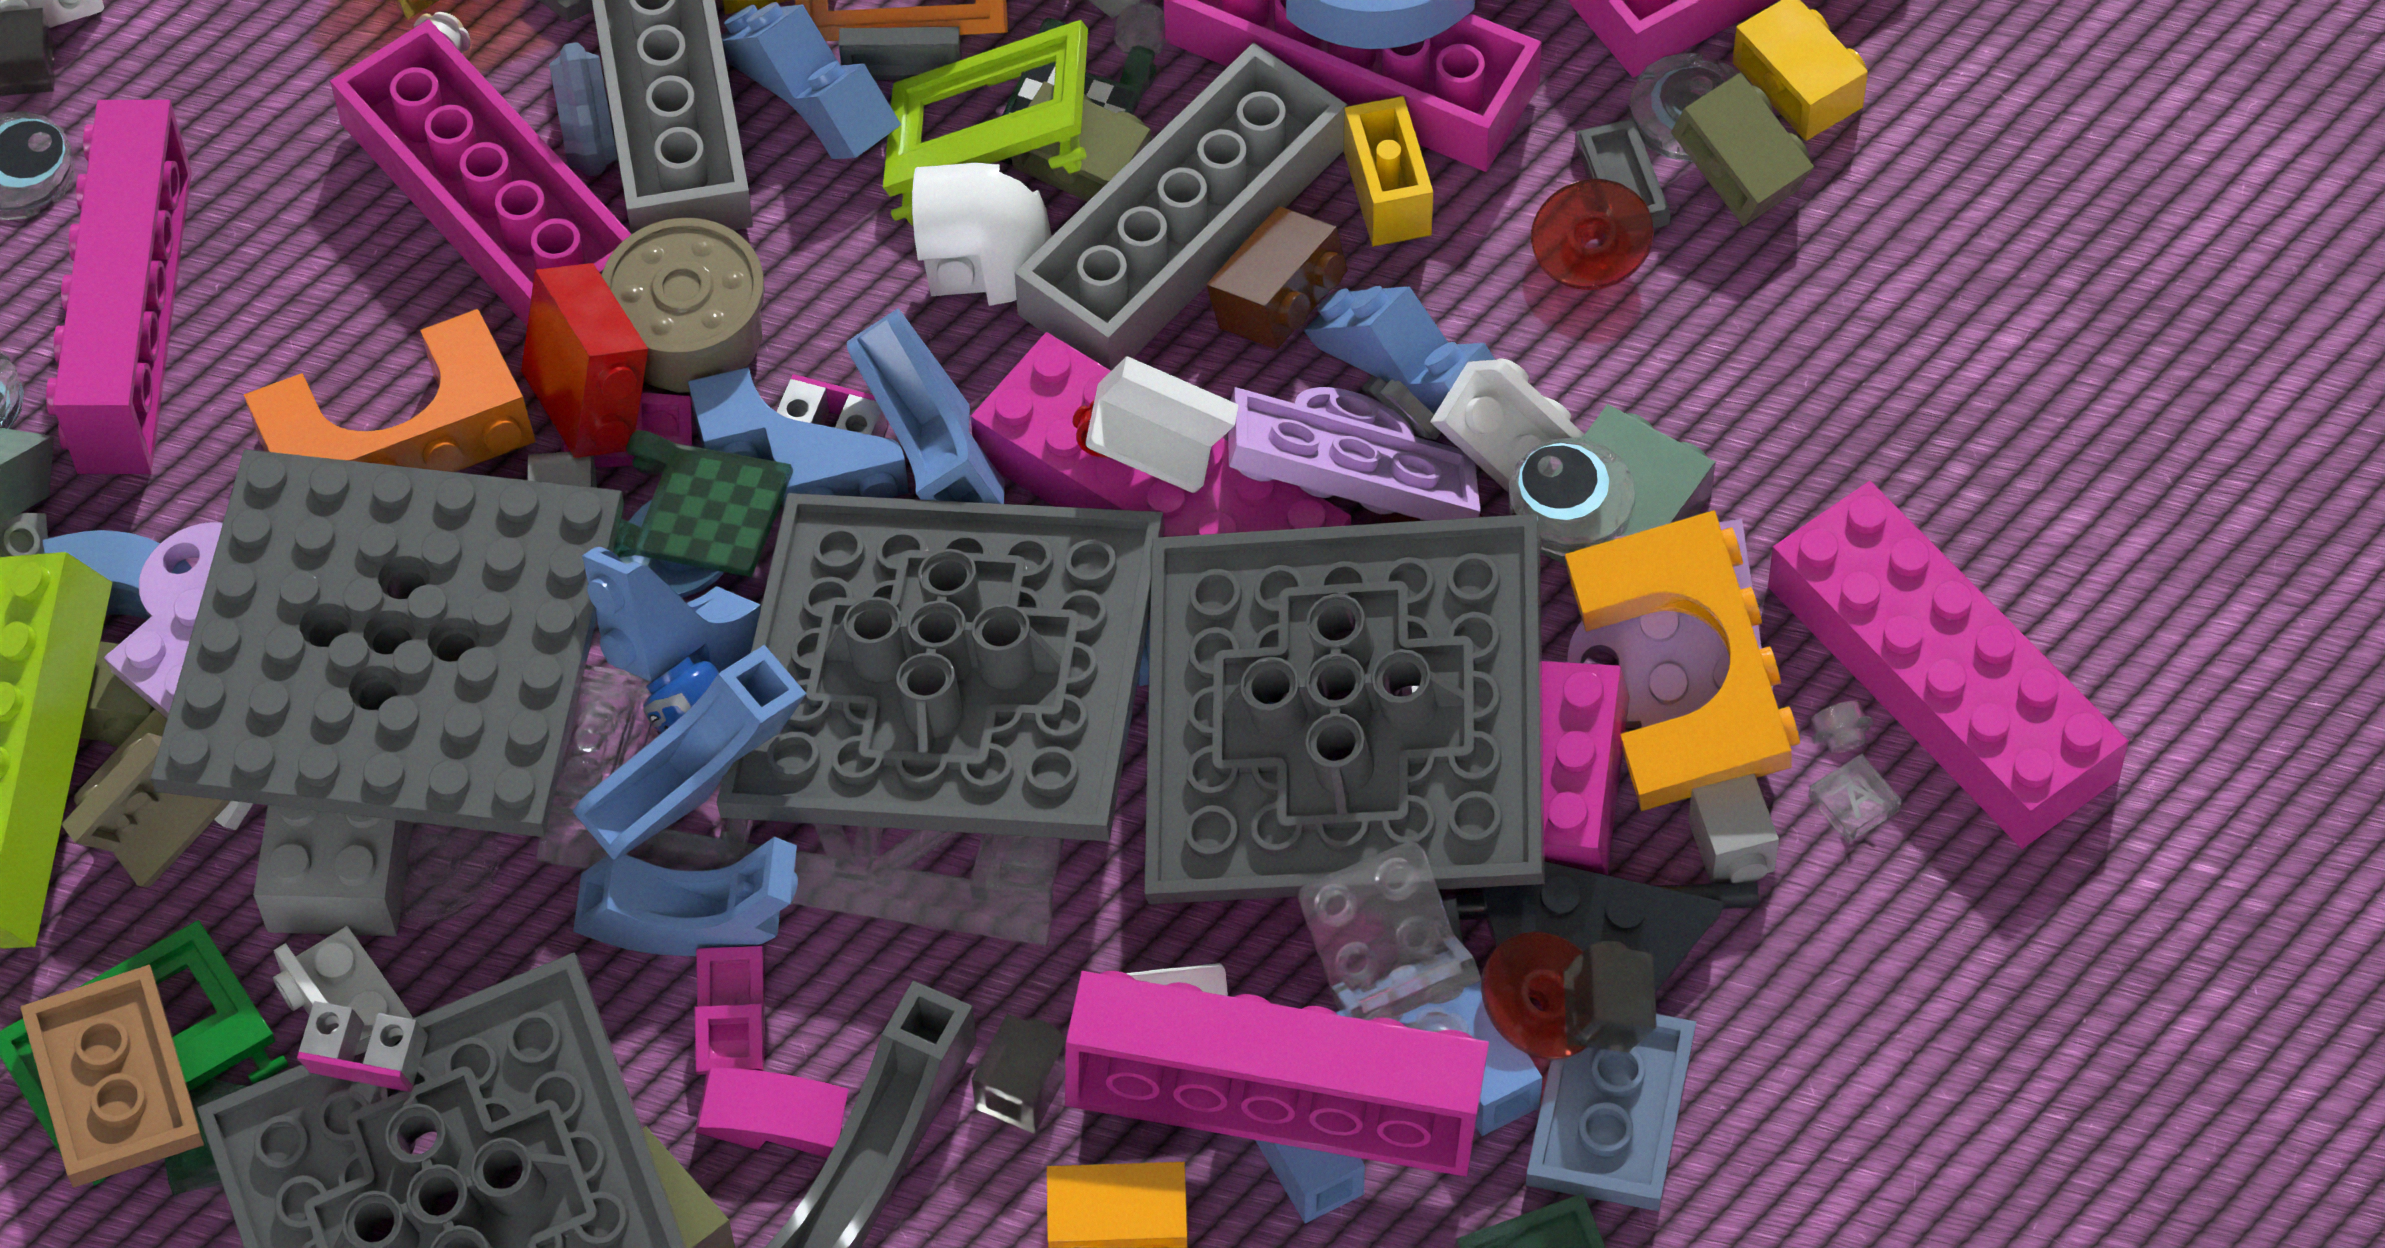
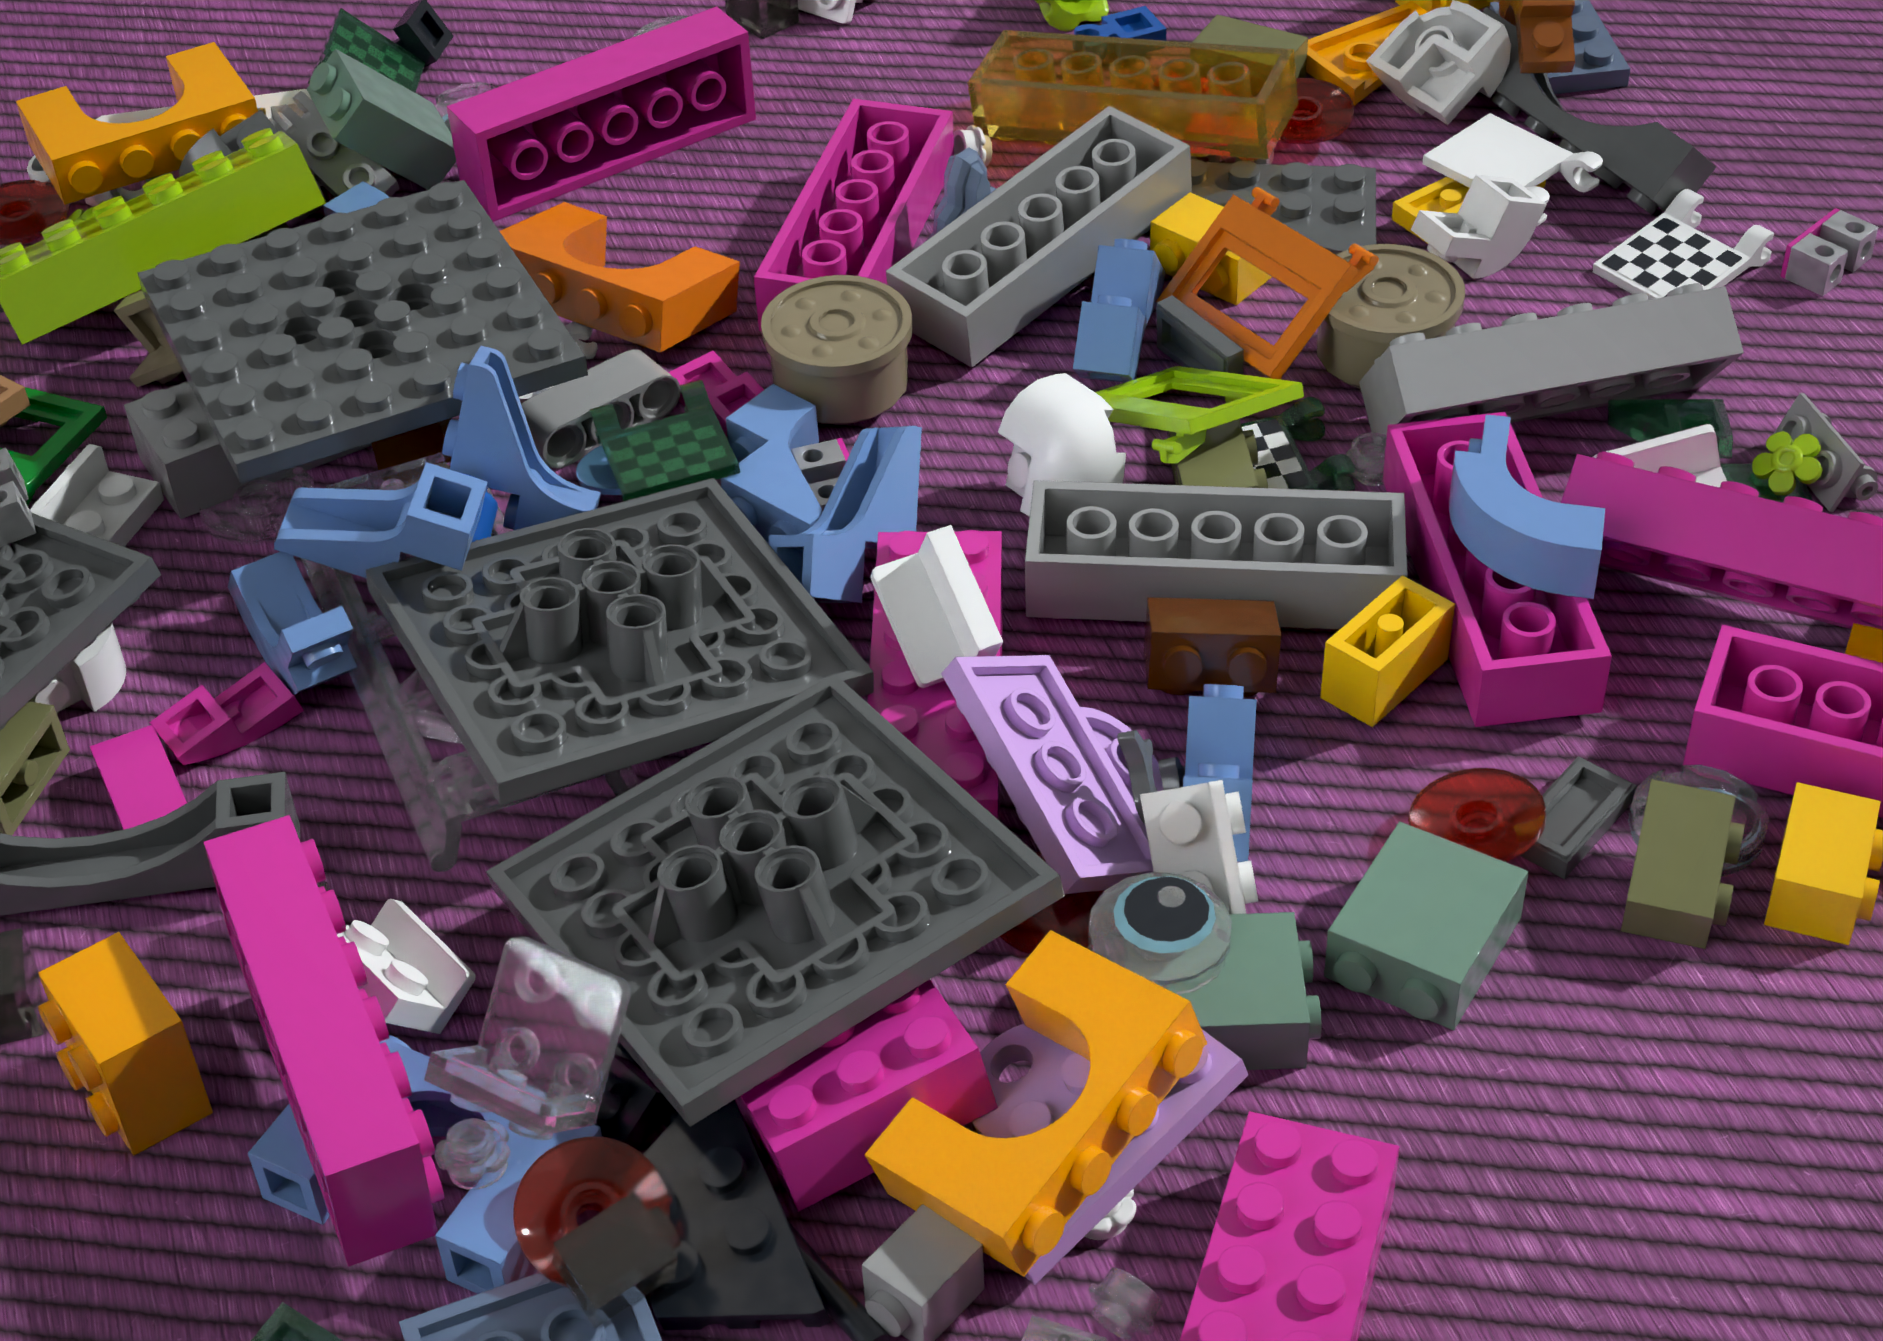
camera: 55 degrees right, 15 degrees down
(584, 359) = (721, 313): red brick -> none
(1663, 334) = (1425, 925): none -> sand green brick

